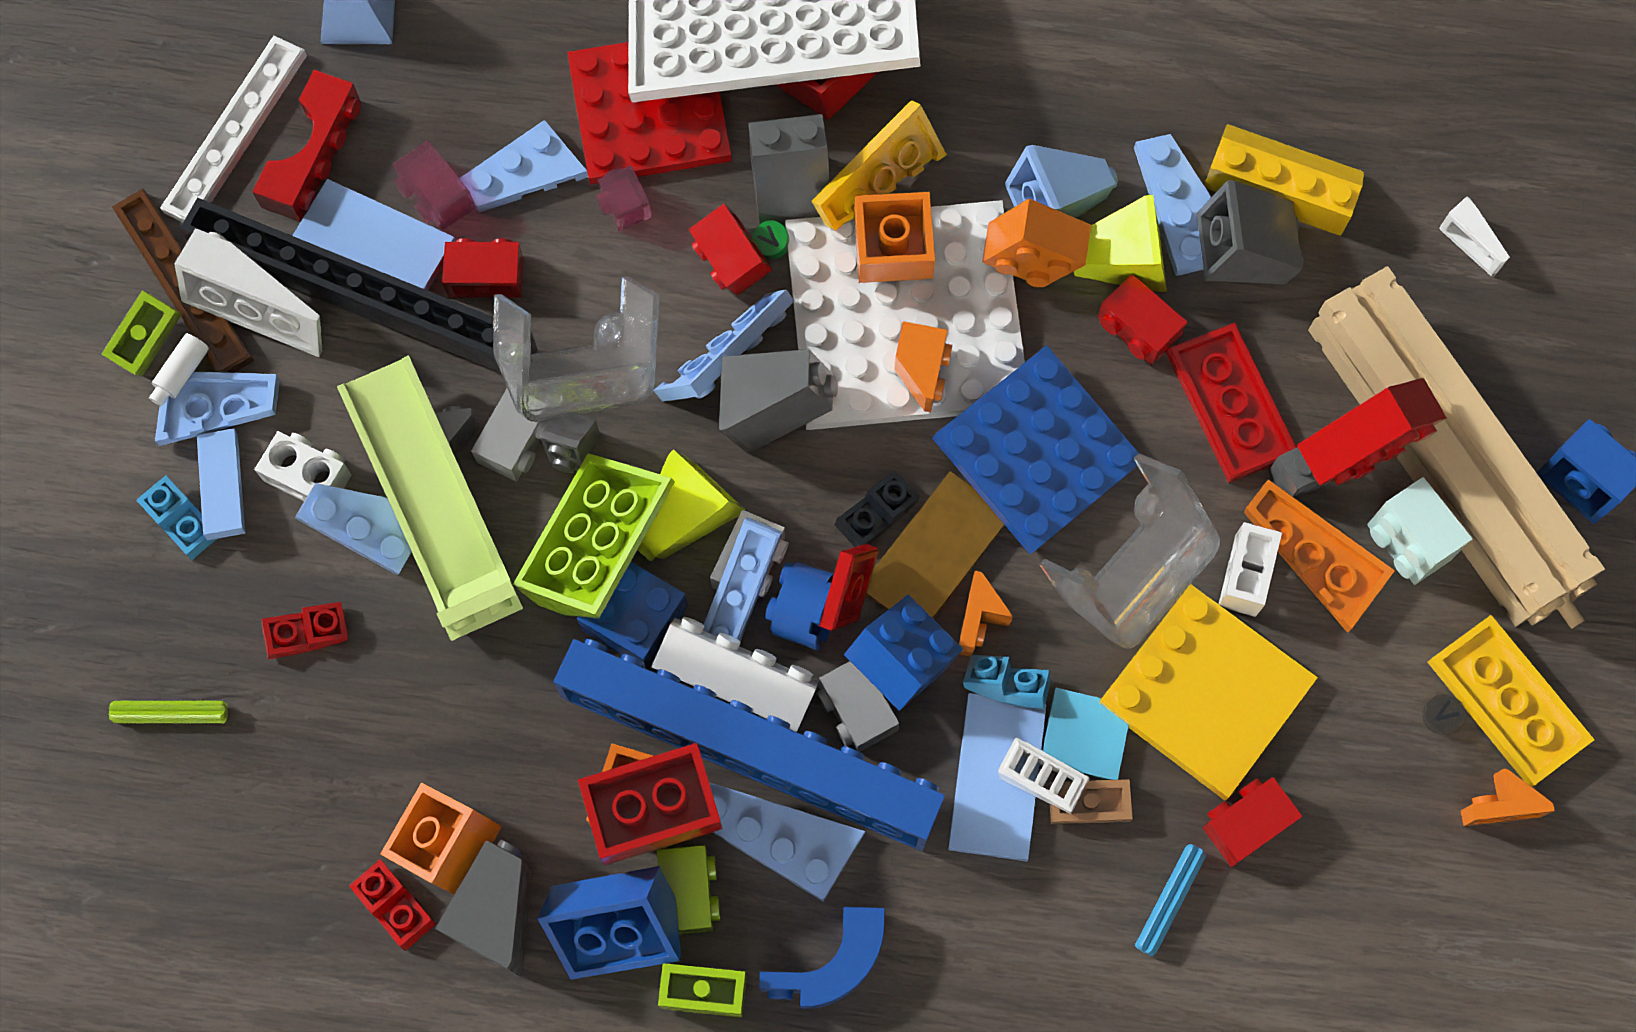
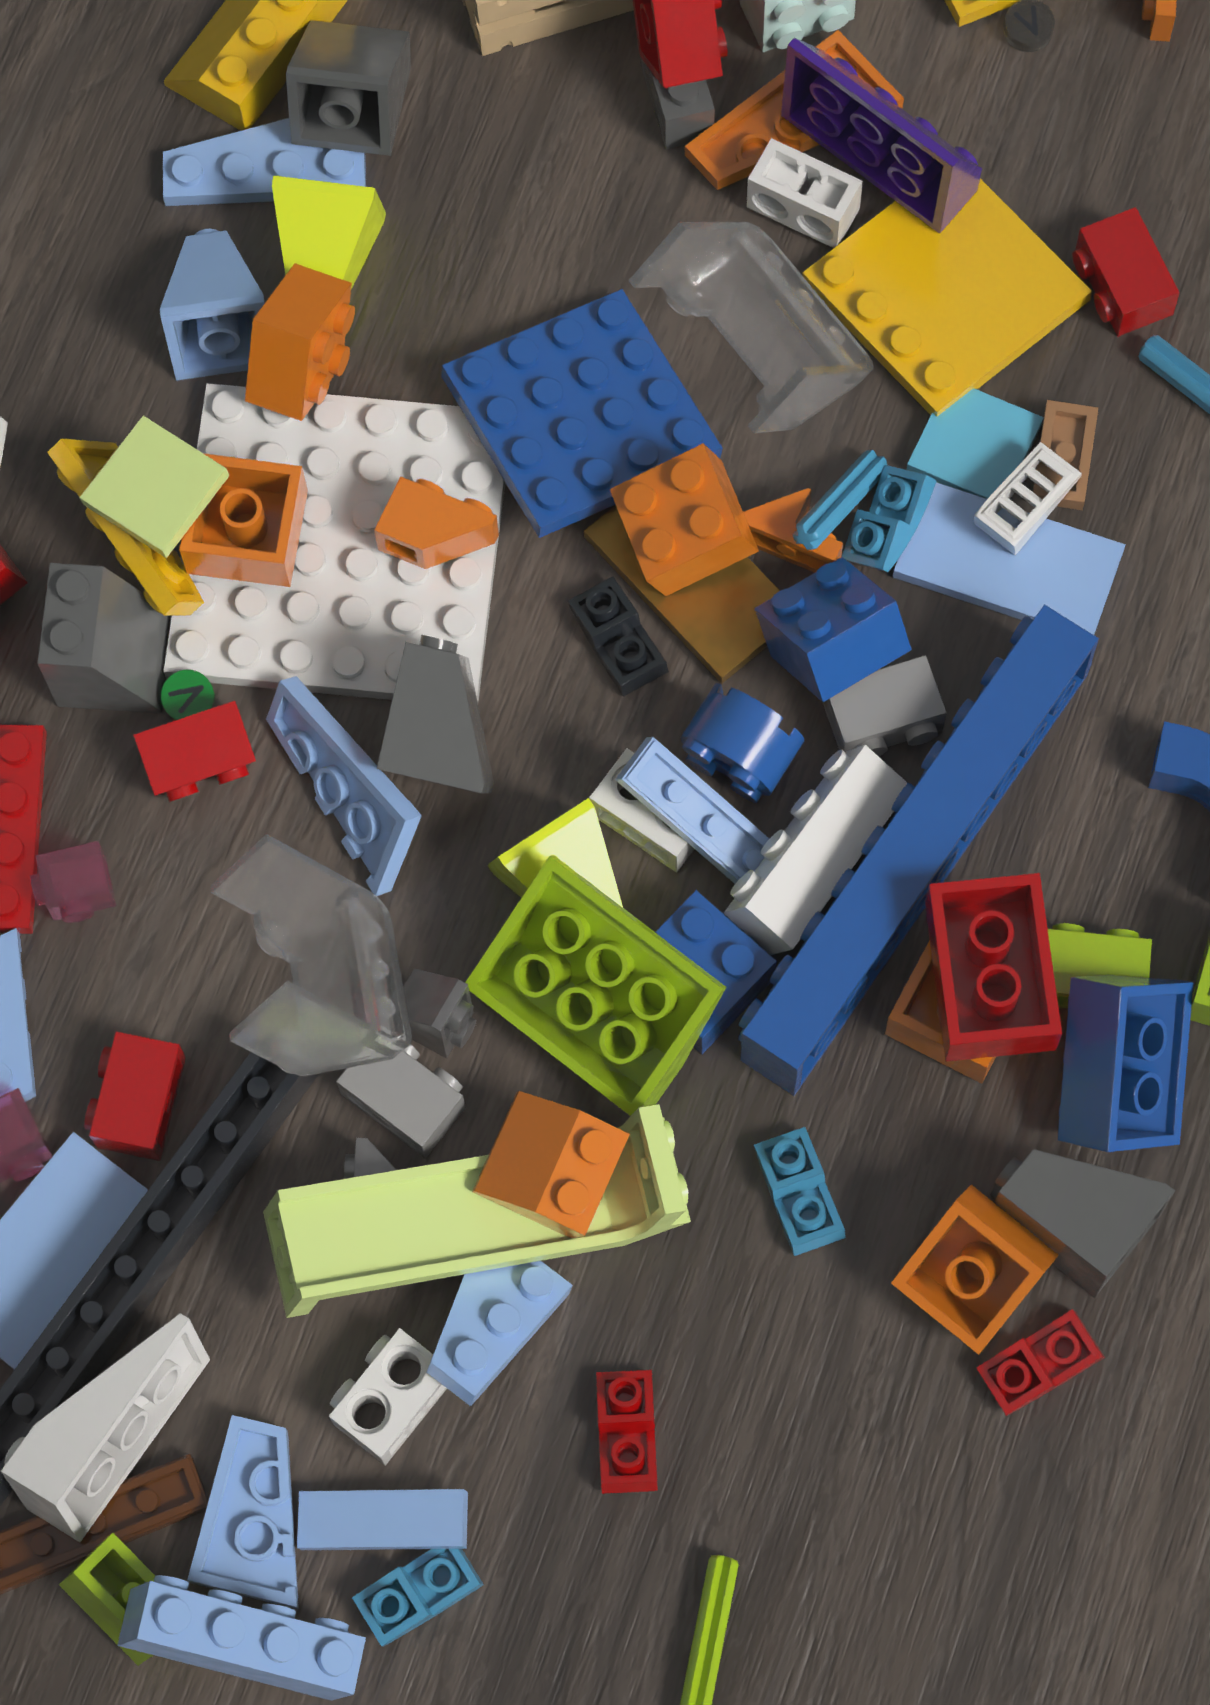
camera: 75 degrees left, 0 degrees up
(116, 406) = (242, 1640): none -> light blue brick
(178, 369) = (195, 1550): white cylinder -> none
(467, 535) = (551, 1164): none -> orange slope
(491, 714) = (799, 1191): none -> dark azure slope
(786, 840) = (1055, 820): light blue wing -> none
(849, 586) = (731, 672): red tile -> none
(895, 168) = (154, 486): none -> yellowish green tile
(962, 530) = (684, 520): none -> orange brick
(1008, 640) = (839, 500): none -> dark azure axle
(1141, 320) = (426, 247): red brick -> none
(1231, 401) = (563, 168): red tile -> none
(1308, 609) = (877, 136): none -> dark purple slope

